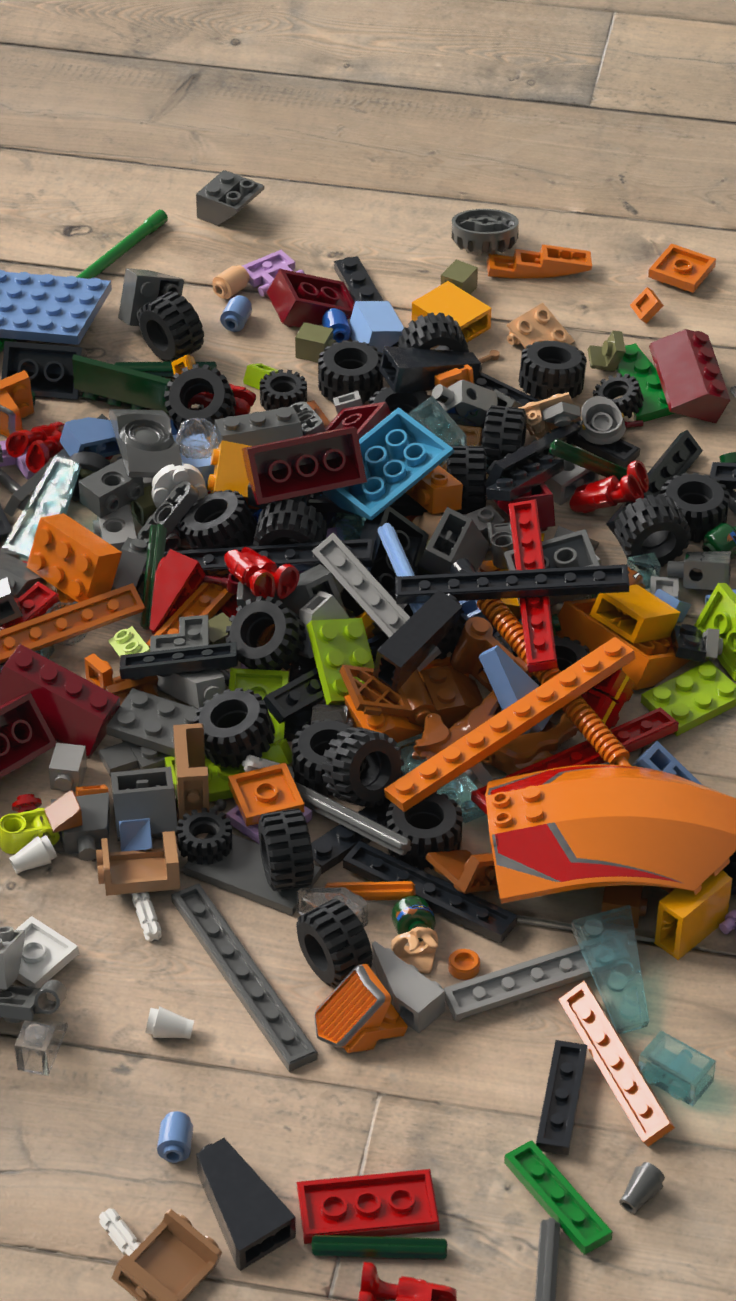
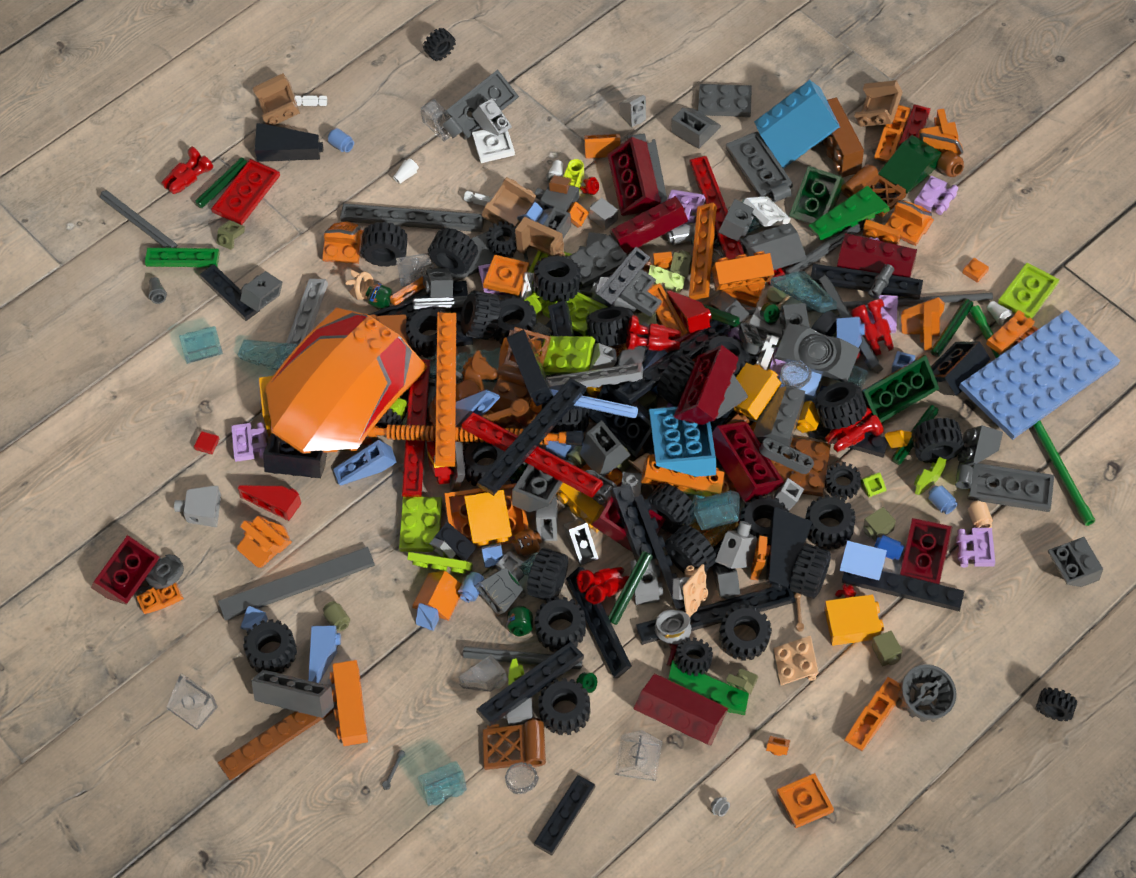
camera: 130 degrees right, 15 degrees up
(73, 408) = (901, 359): none -> medium blue slope
(82, 648) = (681, 263): none -> olive bracket
(112, 518) = (769, 312): none -> dark green tile
(171, 260) = (1012, 488): none -> dark grey hinge
(222, 332) = (929, 477): none -> lime slope
(345, 845) = (438, 283): none -> dark grey brick
(407, 152) = (1056, 704): none -> black tyre
(412, 994) = (338, 267): light grey slope -> none
(463, 1163) = (229, 232): none -> olive bracket
(464, 964) = (341, 303): orange tile -> none
(532, 1043) = (261, 291): none -> dark grey brick
(616, 1064) = (226, 323): plate -> none

